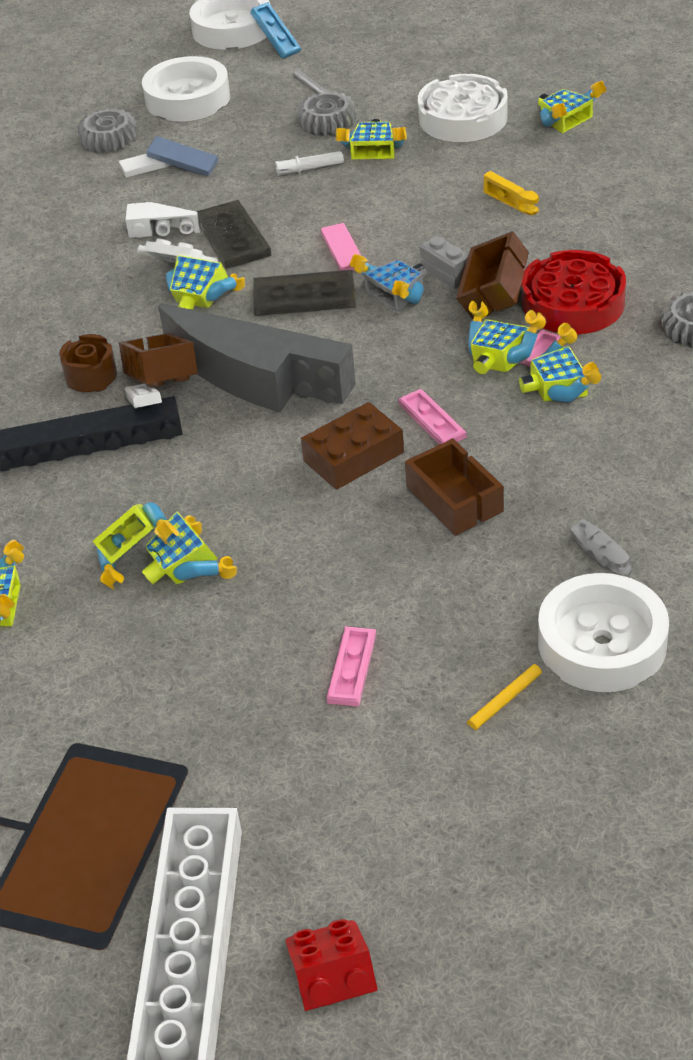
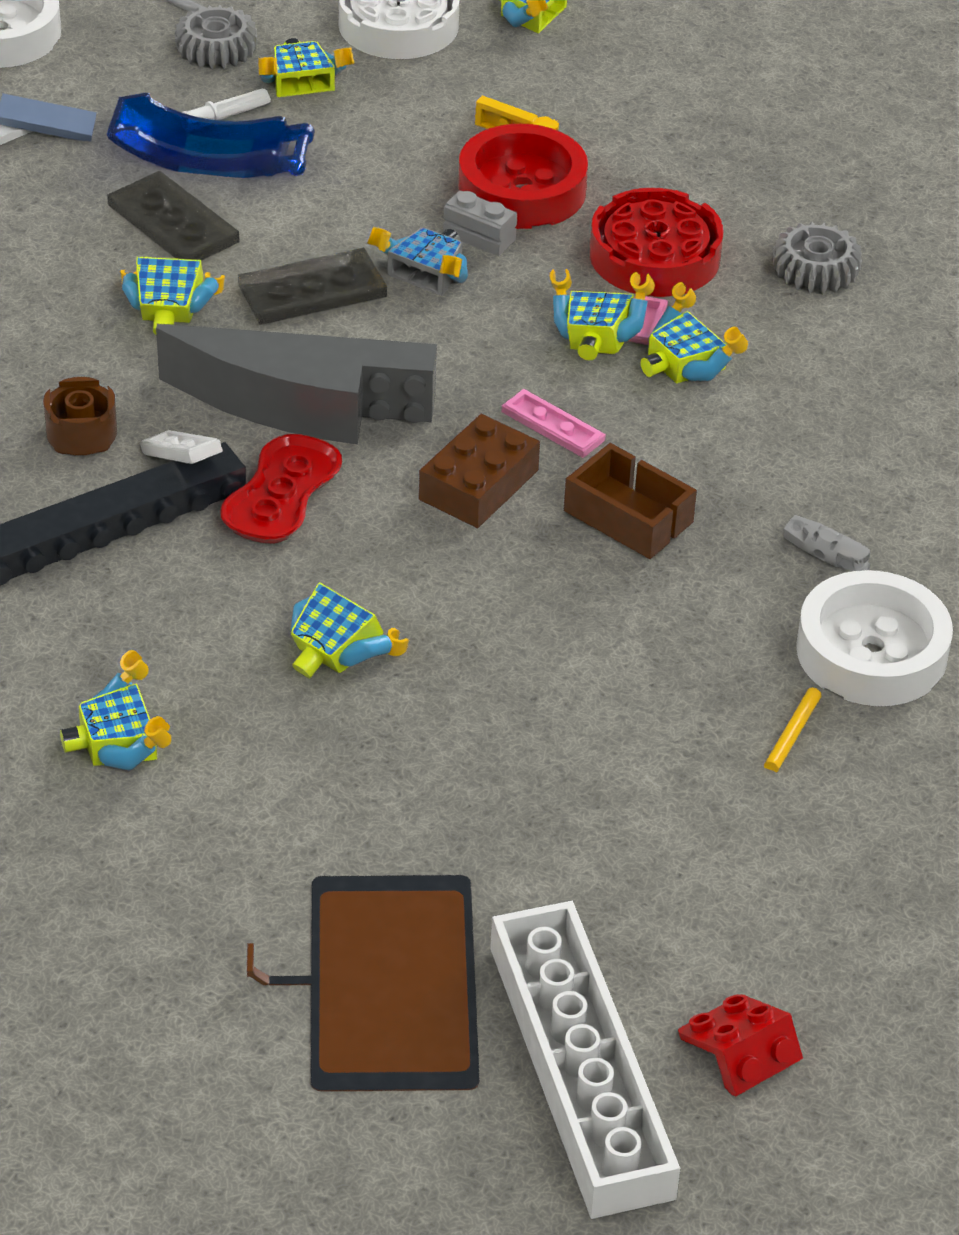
camera: 25 degrees left, 0 degrees up
(127, 534) = (264, 618): torso -> none
(142, 216) = (39, 210): white slope -> none
(164, 360) = (183, 397): reddish brown piece -> none
(166, 252) = (111, 255): white plate -> none
(214, 426) = (277, 495): none -> red plate
(281, 186) = (207, 145): none -> clear blue windscreen
(340, 245) = (329, 219): bright pink tile -> none
(351, 666) = (603, 728): bright pink tile -> none
(493, 273) = (555, 232): reddish brown piece -> none
(494, 215) = (529, 155): none -> red brick

